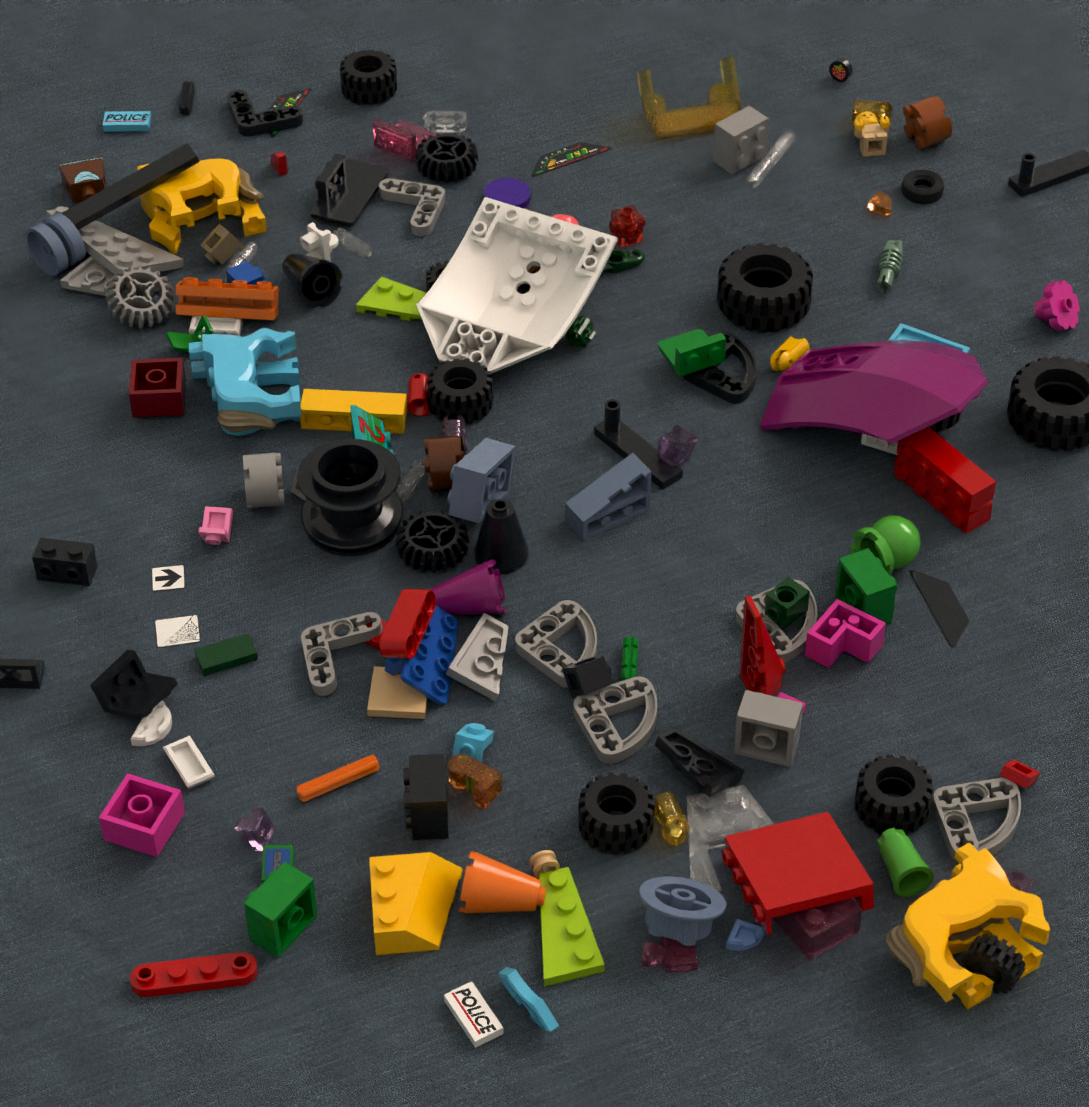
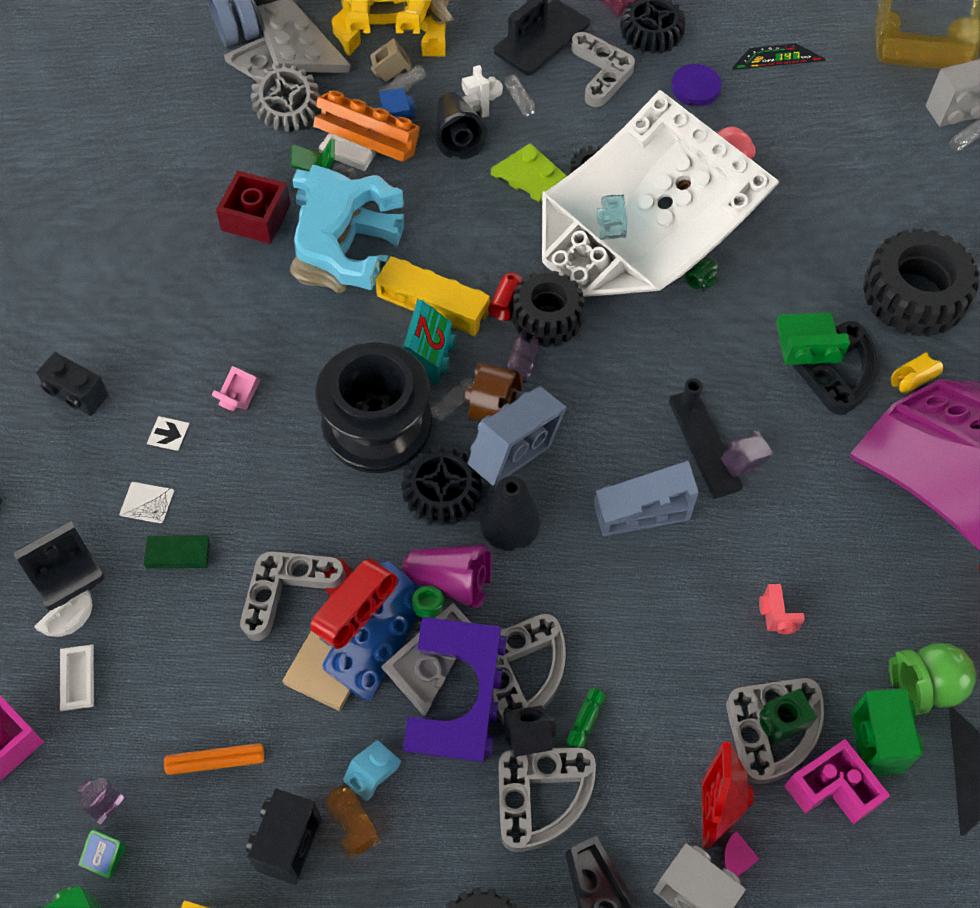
camera: 20 degrees right, 15 degrees up
(263, 480) = (301, 353): light grey brick -> none
(463, 617) = (428, 601): none -> green tile
(485, 306) = (612, 217): none -> clear light blue brick
(519, 629) = (468, 735): none -> dark purple arch
(626, 261) = (787, 200): dark green piece -> none
(627, 225) = (803, 159): clear red brick -> none
(748, 546) = (773, 608): none -> coral bracket

